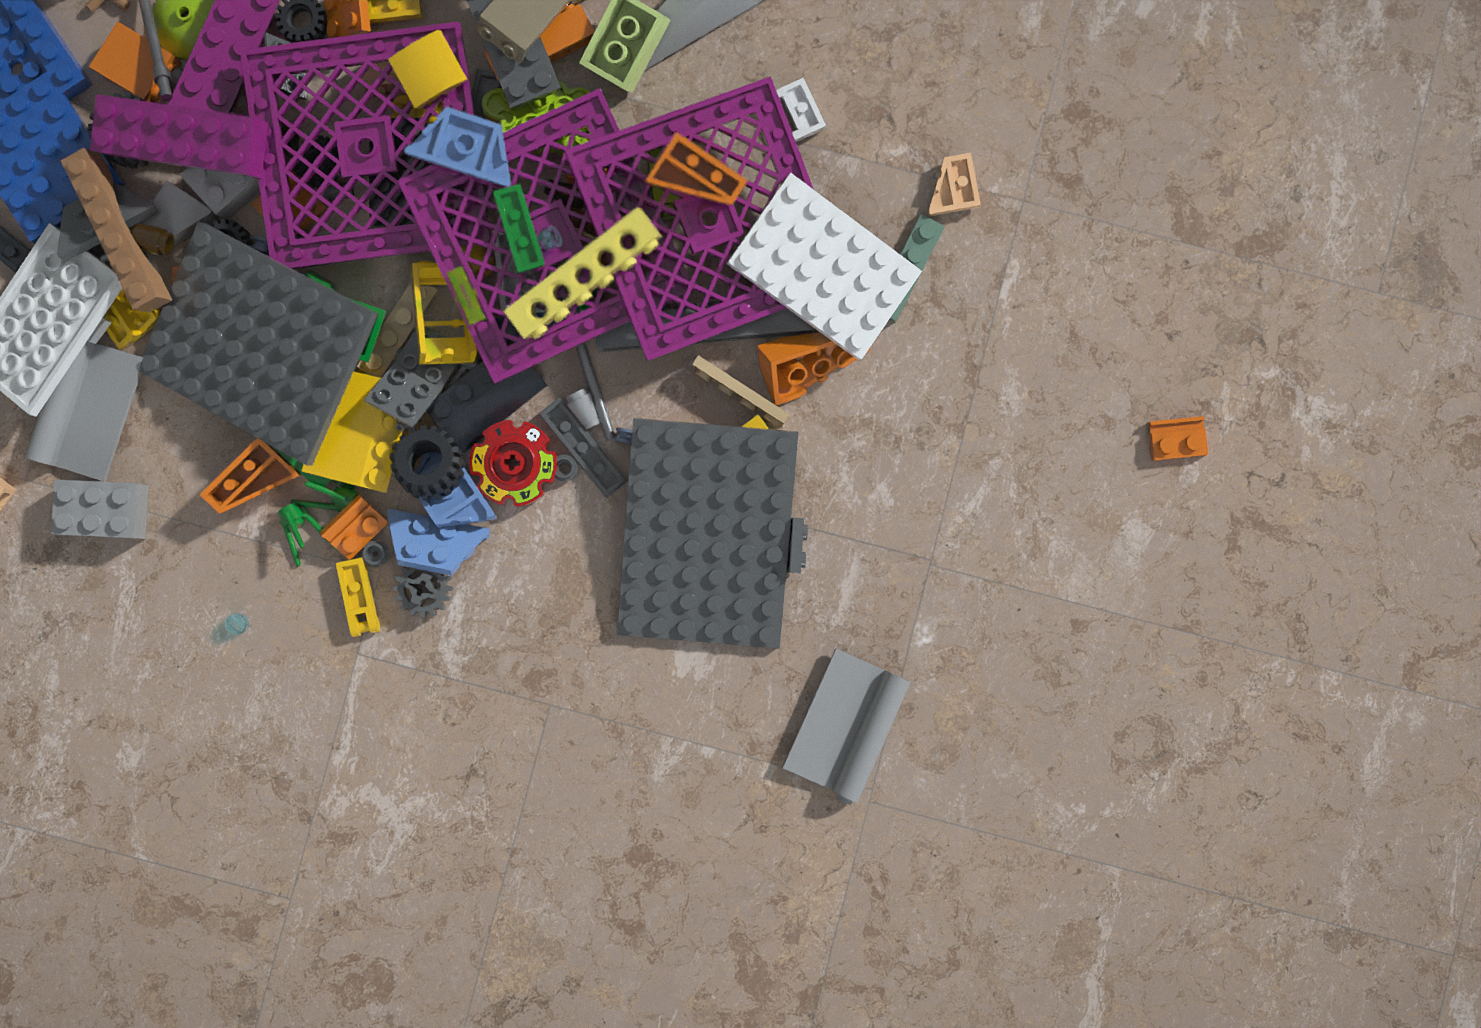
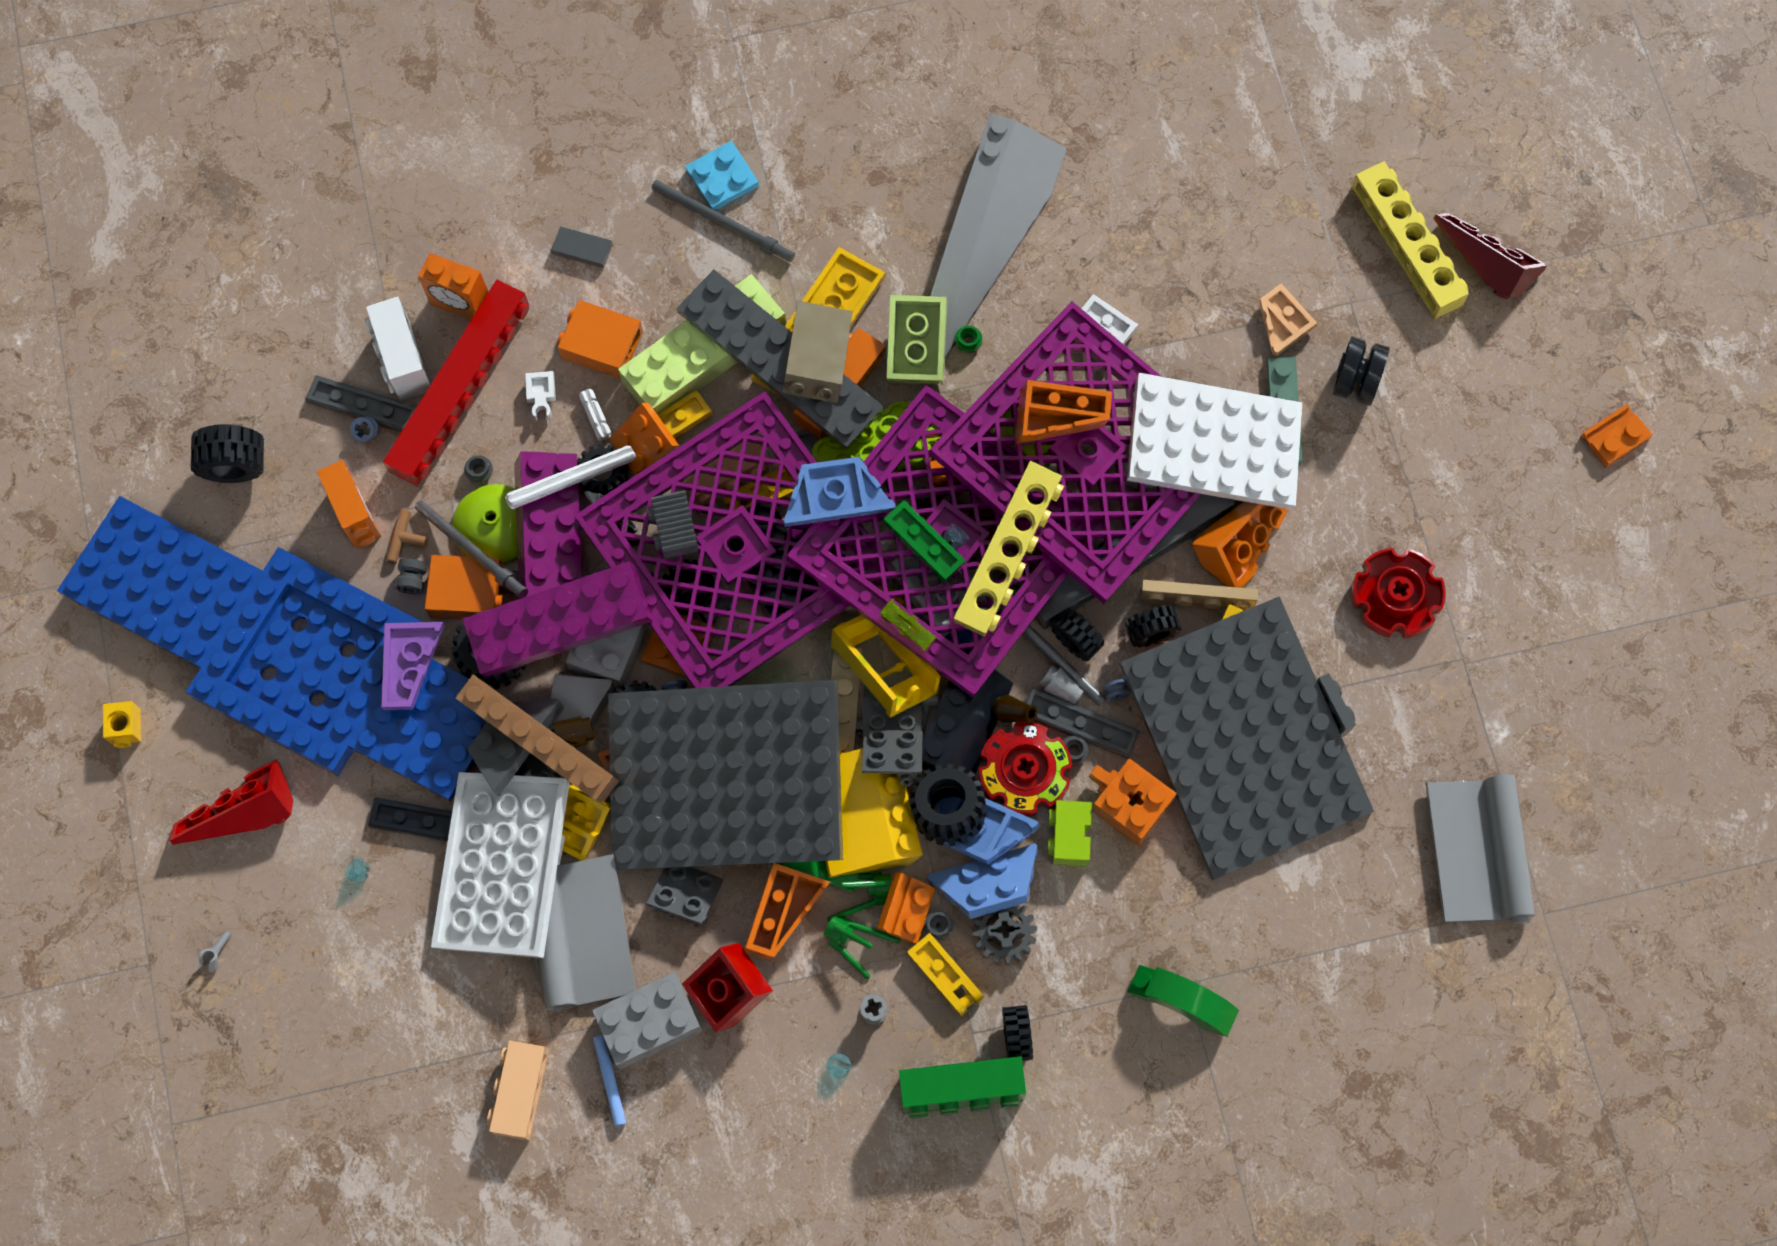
camera: 25 degrees left, 15 degrees down
(47, 106) = (406, 661): none -> medium lavender wing
(47, 552) = (609, 1080): none -> light blue bar
(93, 36) = (410, 576): none -> dark grey wheel
(172, 517) = (727, 987): none -> red brick
(183, 422) = (685, 894): none -> dark grey hinge
(258, 12) = (570, 477): none -> white axle
(279, 601) = (868, 1017): none -> light grey bush
(315, 102) = (674, 524): none -> dark grey brick
(315, 695) = (962, 1086): none -> green brick
(385, 676) = (1017, 1032): none -> black tyre
(427, 69) = (760, 445): yellow slope -> none
(516, 541) = (1070, 823): none -> lime brick
(529, 407) = (1011, 710): none -> dark brown cone
(533, 721) = (1185, 997): none -> green arch
(569, 532) = (1129, 784): none -> orange hinge
(617, 373) = (1077, 634): none -> black tyre
(675, 54) = (968, 331): none -> green plate
(684, 399) = (1153, 626): none -> black tyre
(924, 463) = (1392, 612): none -> red piece
(989, 268) = (1360, 370): none -> black wheel
(1099, 238) = (1409, 253): none -> light yellow brick
(1168, 232) = (1499, 267): none -> dark red wedge

